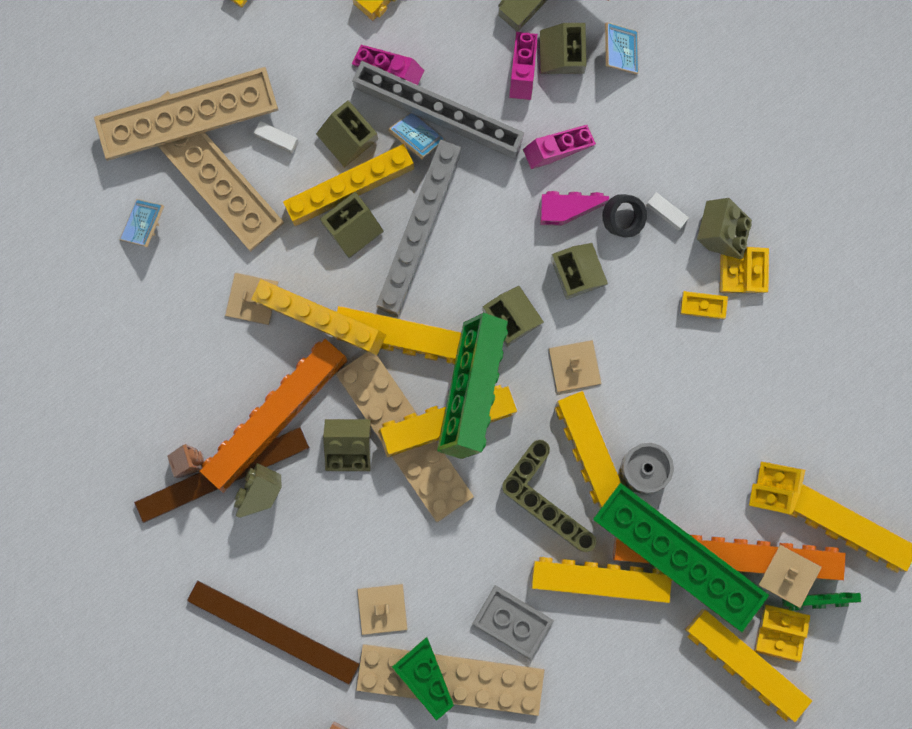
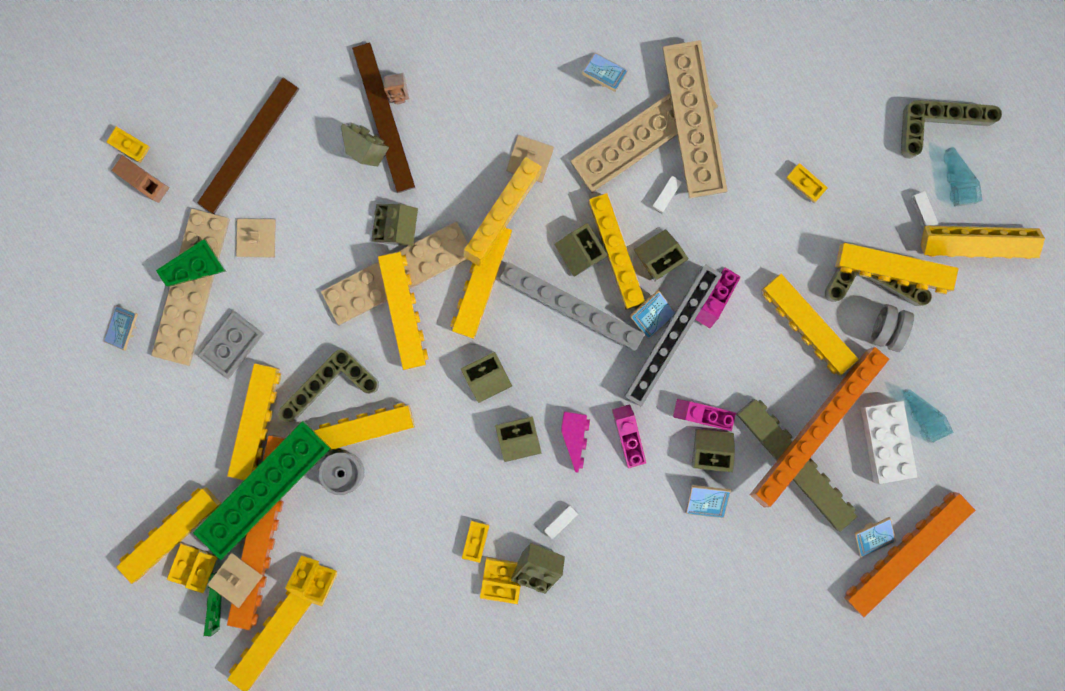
camera: 100 degrees right, 5 degrees up
(273, 416) = (426, 165): orange brick -> none
(473, 386) = (424, 334): green brick -> none
(575, 366) = (438, 425): tan piece -> none
(639, 219) = (555, 495): black tyre -> none

